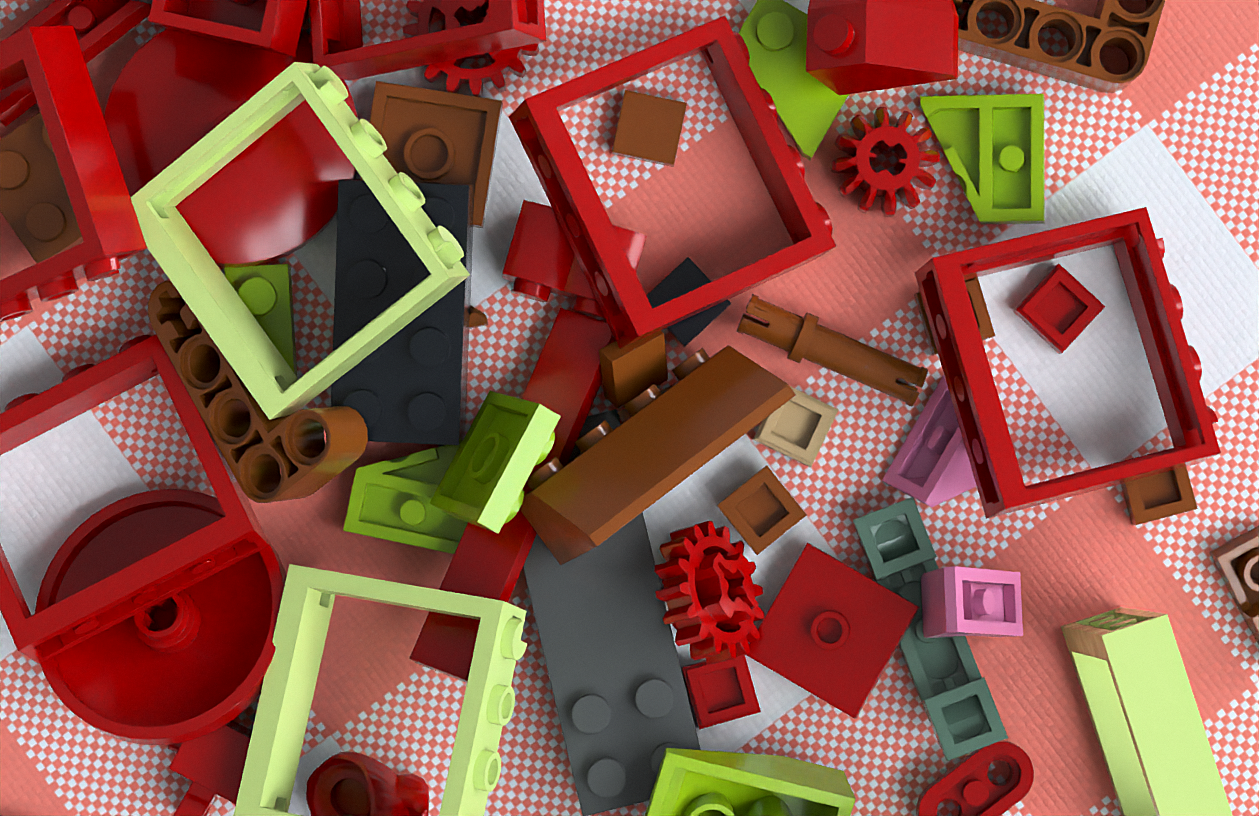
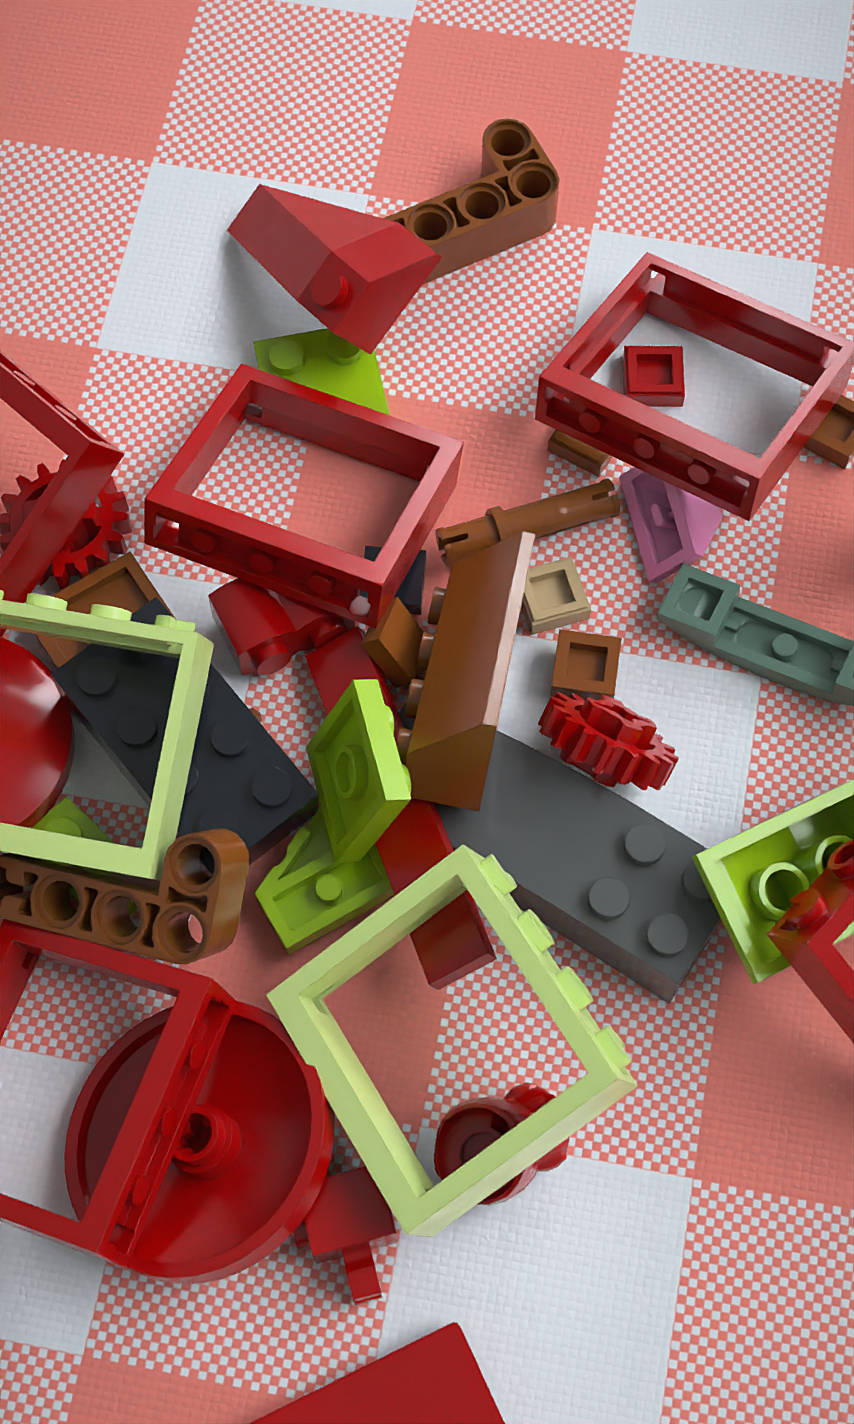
camera: 40 degrees left, 20 degrees down
(649, 128) = (257, 489): dark orange tile -> none
(720, 691) = (688, 810): red tile -> none
(832, 630) = (720, 703): red plate -> none
(886, 139) = (443, 375): red gear -> none
(971, 603) = (789, 595): bright pink slope -> none
(994, 152) = (509, 313): lime wing -> none

